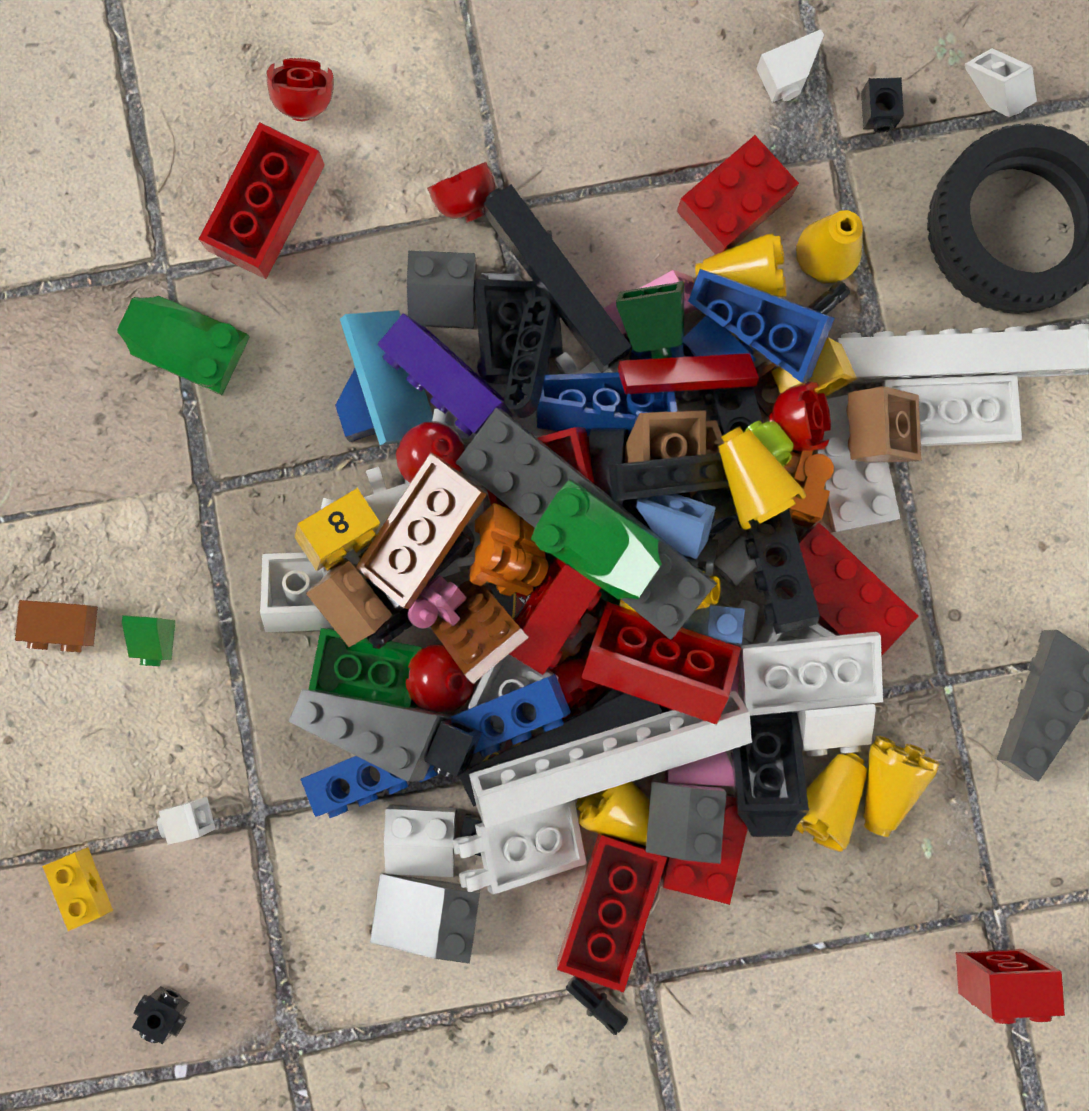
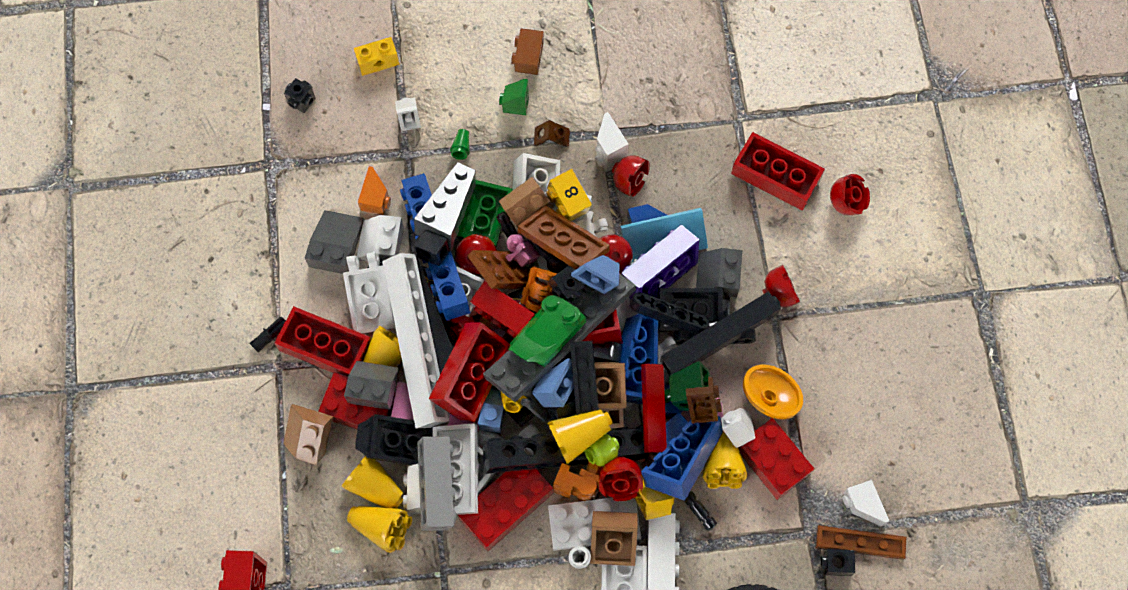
camera: 100 degrees right, 15 degrees down
(182, 341) = (693, 126): green slope -> none
(210, 569) = (552, 132): none -> reddish brown bracket
(230, 471) = (610, 144): none -> white slope
(240, 724) = (460, 147): none -> green cone
(281, 438) = (629, 174): none -> red cylinder
(339, 861) = (374, 195): none -> orange slope
(490, 462) = (599, 274): none -> medium blue slope
(511, 515) = (565, 285): none -> black brick
(636, 200) = (772, 391): none -> light orange dish
(693, 287) = (704, 403): none -> reddish brown bracket
(701, 246) = (738, 426): none -> white slope
(764, 917) = (307, 433): none -> medium nougat slope
(831, 247) = (739, 520): yellow cone -> none
(845, 76) = (861, 541): none -> dark orange tile
(847, 698) = (436, 484): none -> light grey brick
(924, 475) = (578, 552): none -> white cone

